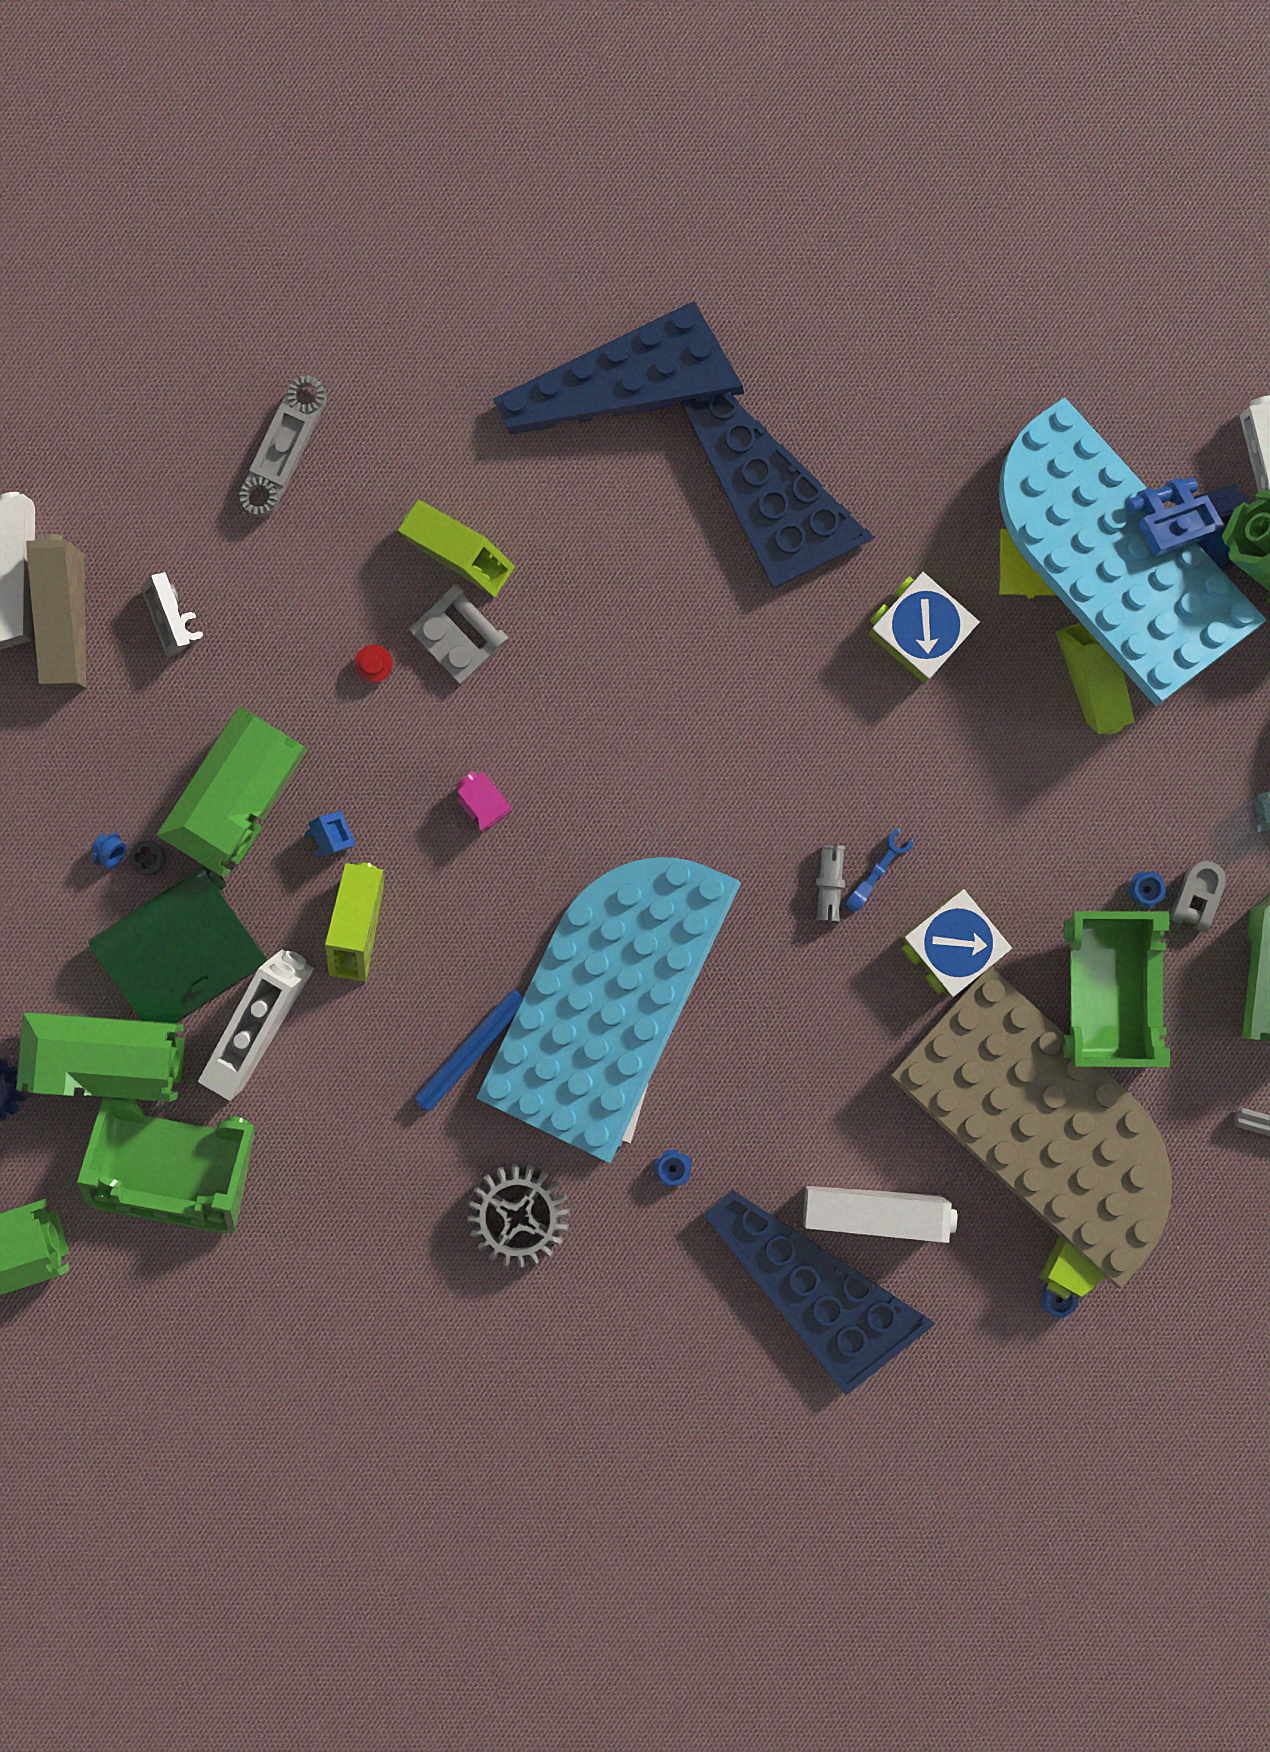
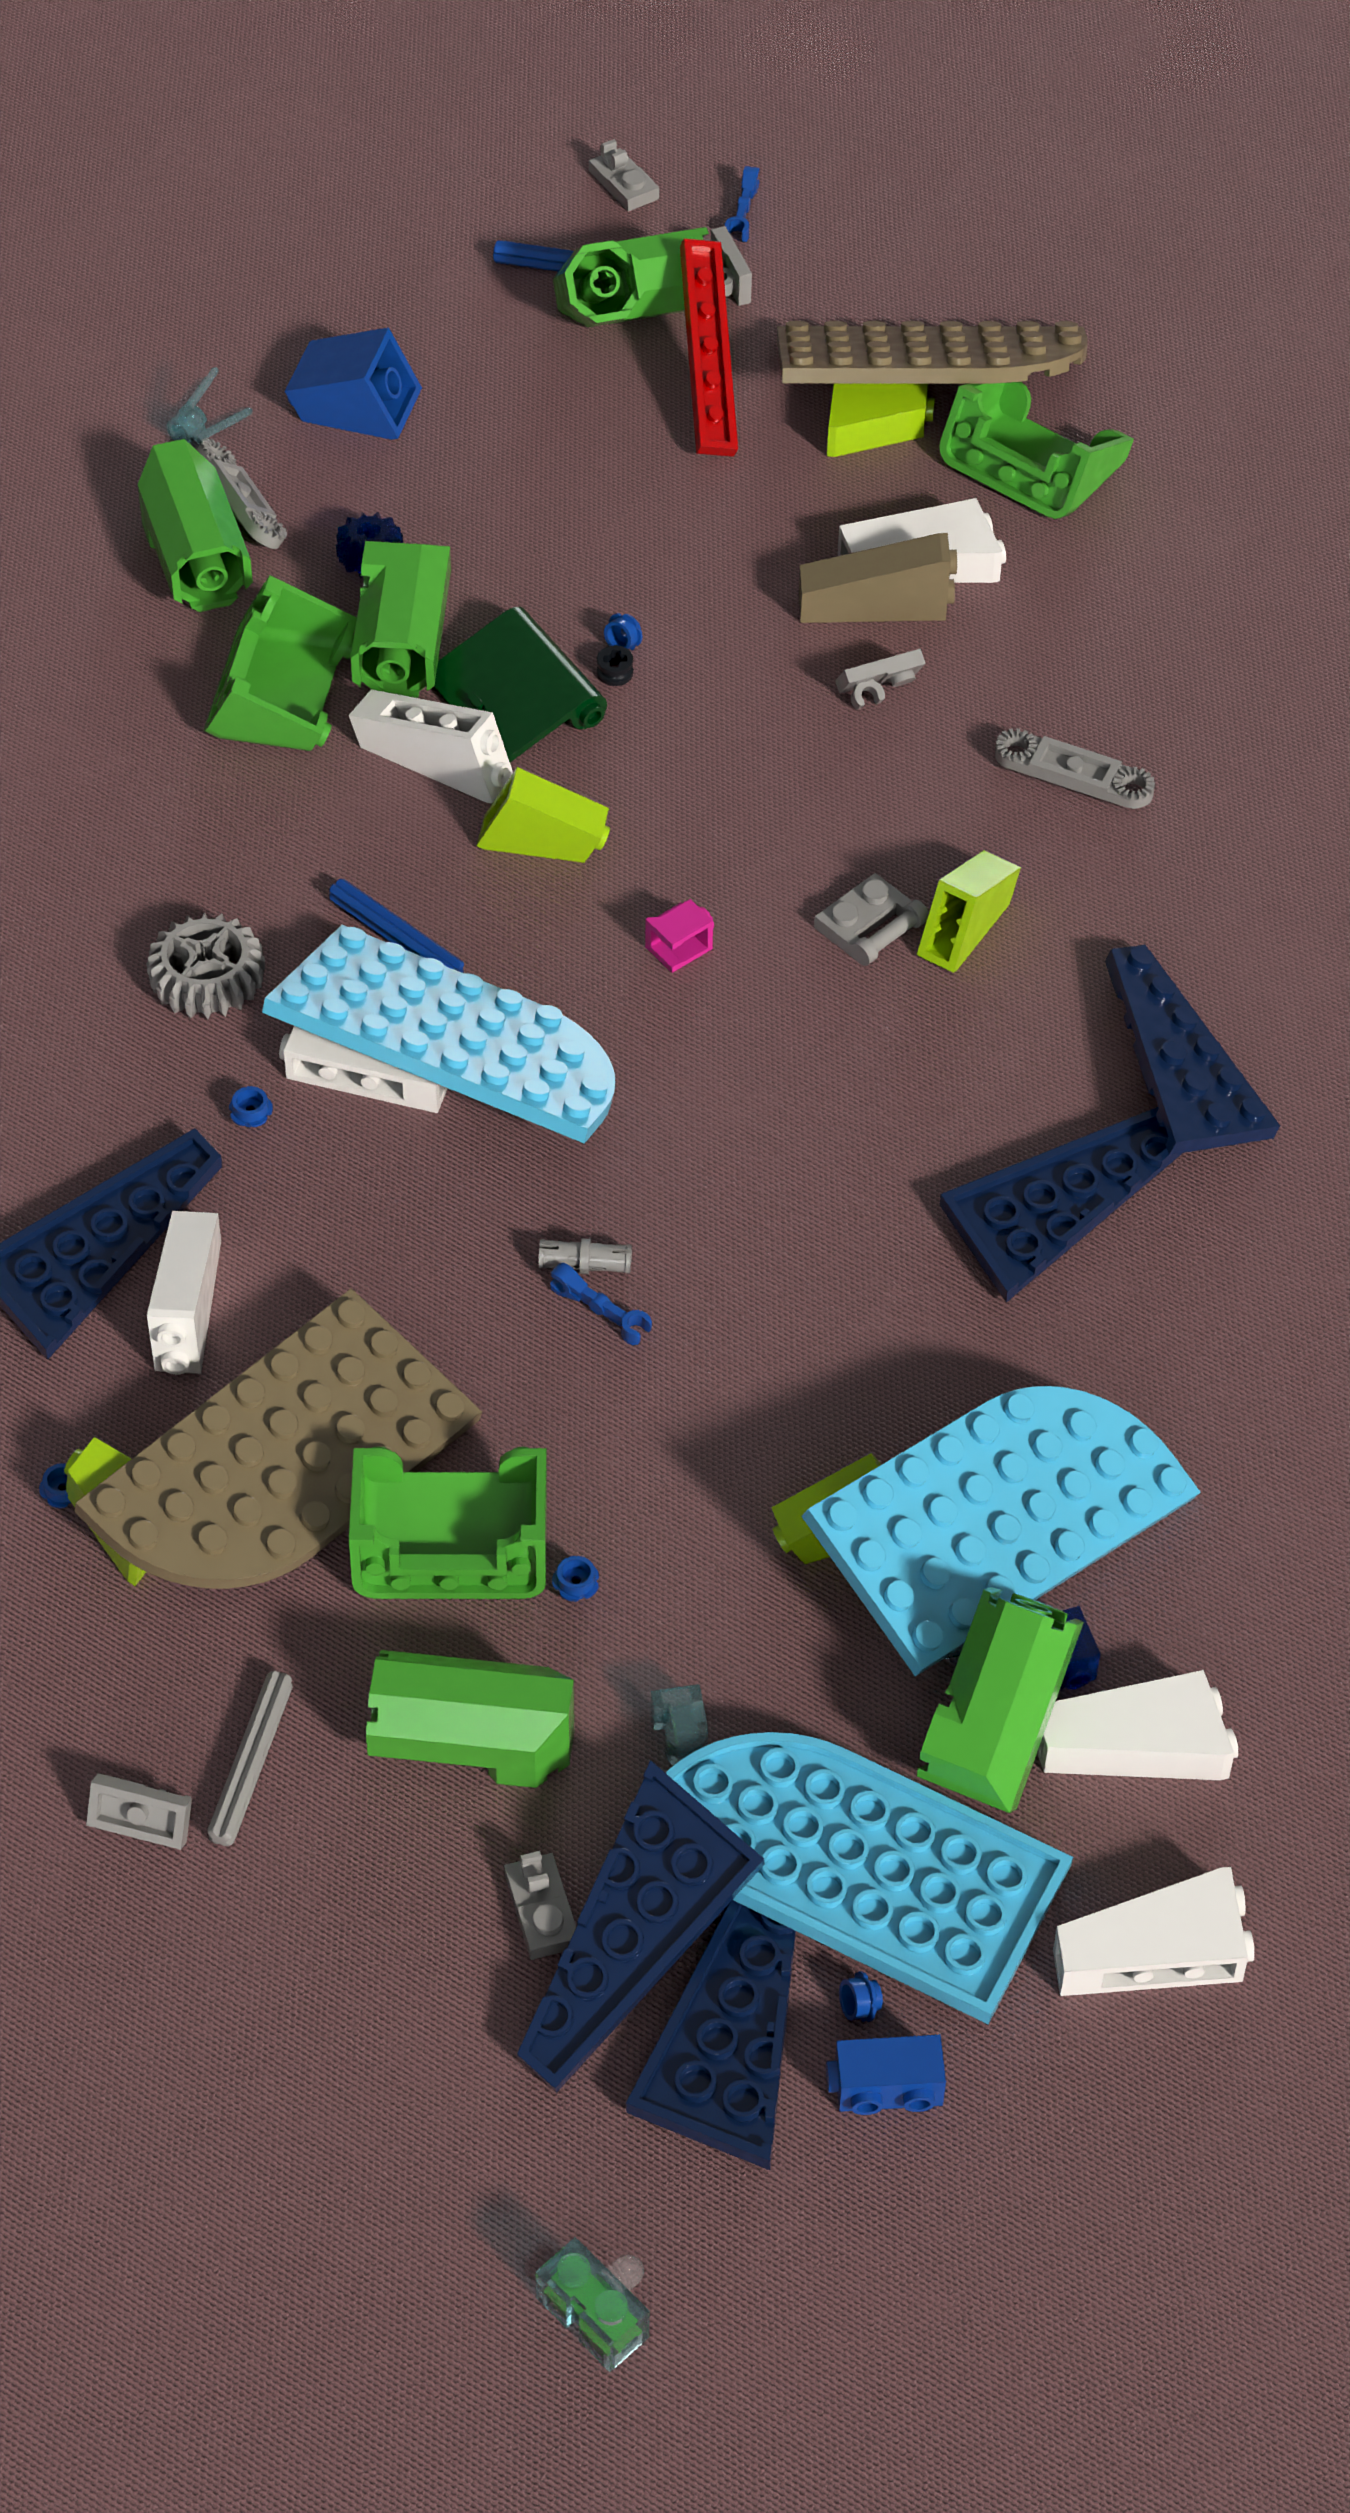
camera: 90 degrees right, 35 degrees down
(230, 791) = (679, 712): bright green brick -> none
(331, 834) = (642, 806): blue tile -> none
(373, 663) = (834, 847): red plate -> none
(922, 626) = (898, 1340): piece -> none
(954, 944) = (511, 1371): piece -> none
(1179, 525) = (1038, 1567): blue plate -> none
(1203, 881) = (583, 1640): light grey plate -> none

